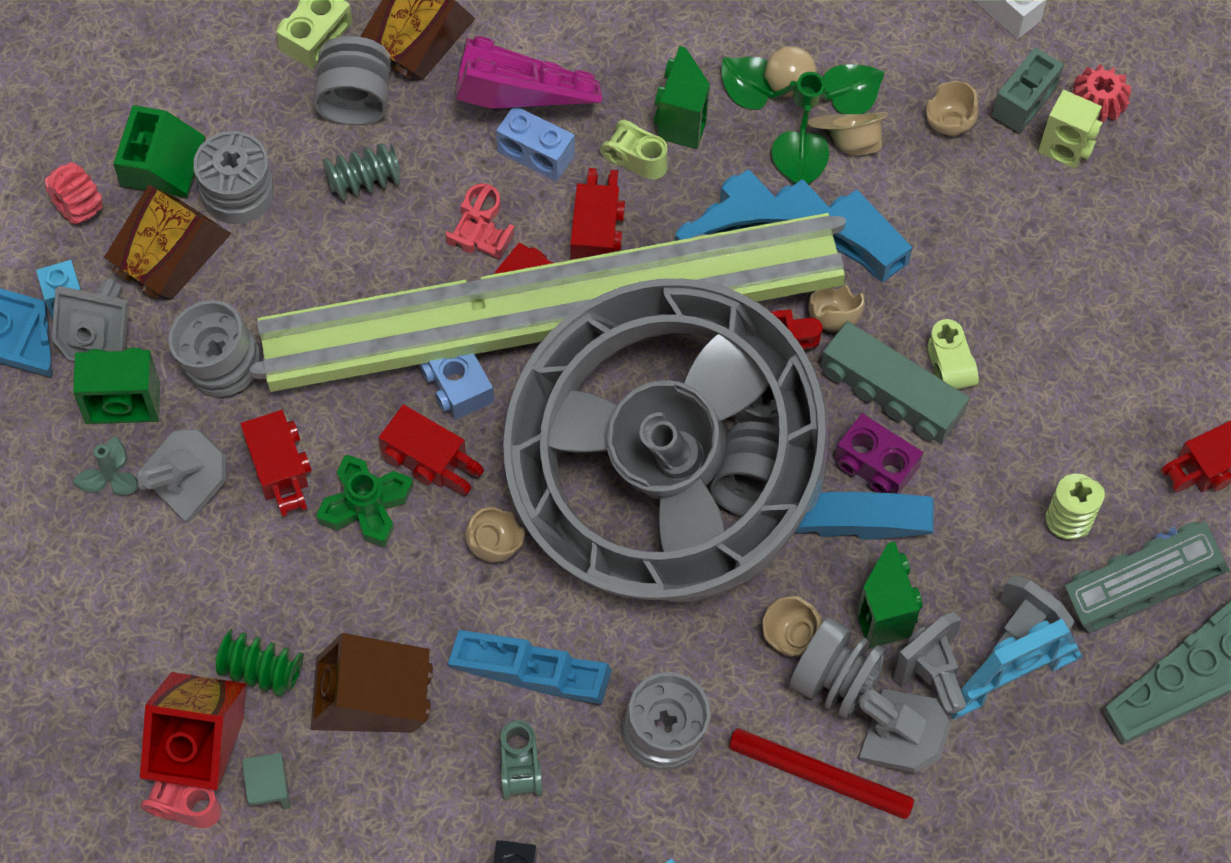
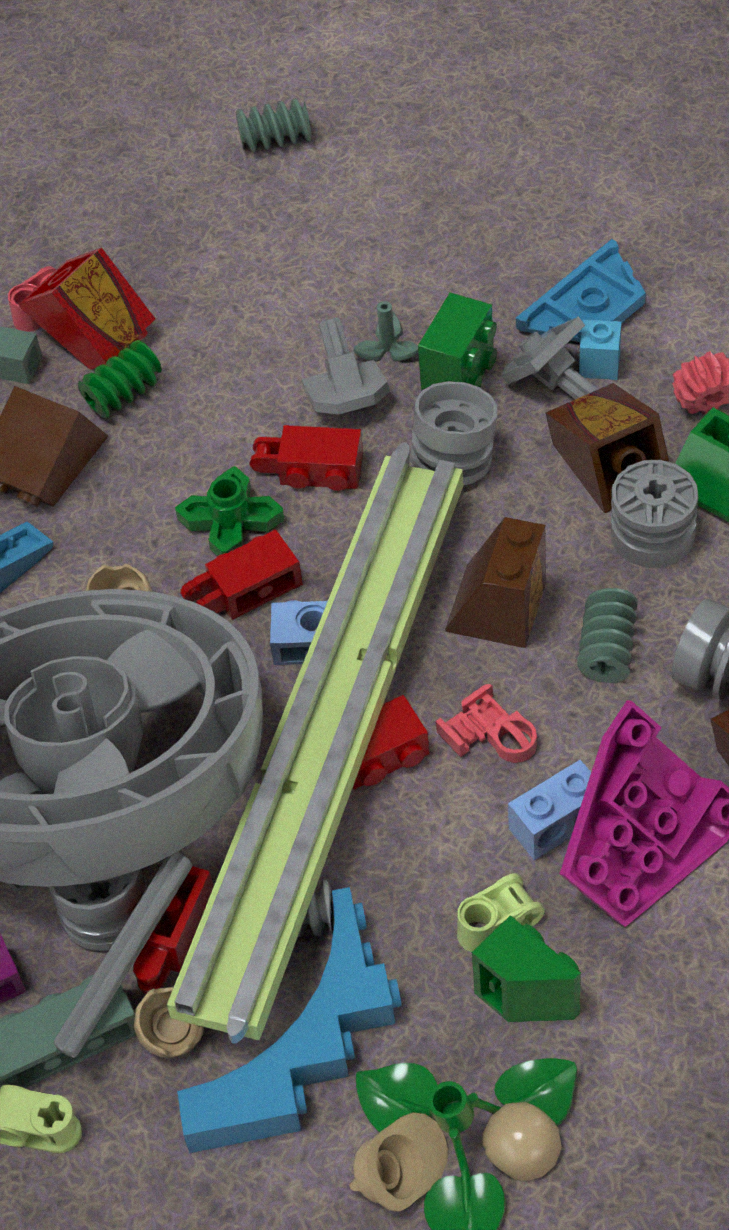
camera: 125 degrees right, 10 degrees down
(358, 247) = (502, 585): none -> reddish brown slope
(596, 217) = (428, 833): red hinge -> none
(847, 336) = (122, 955): none -> light grey axle

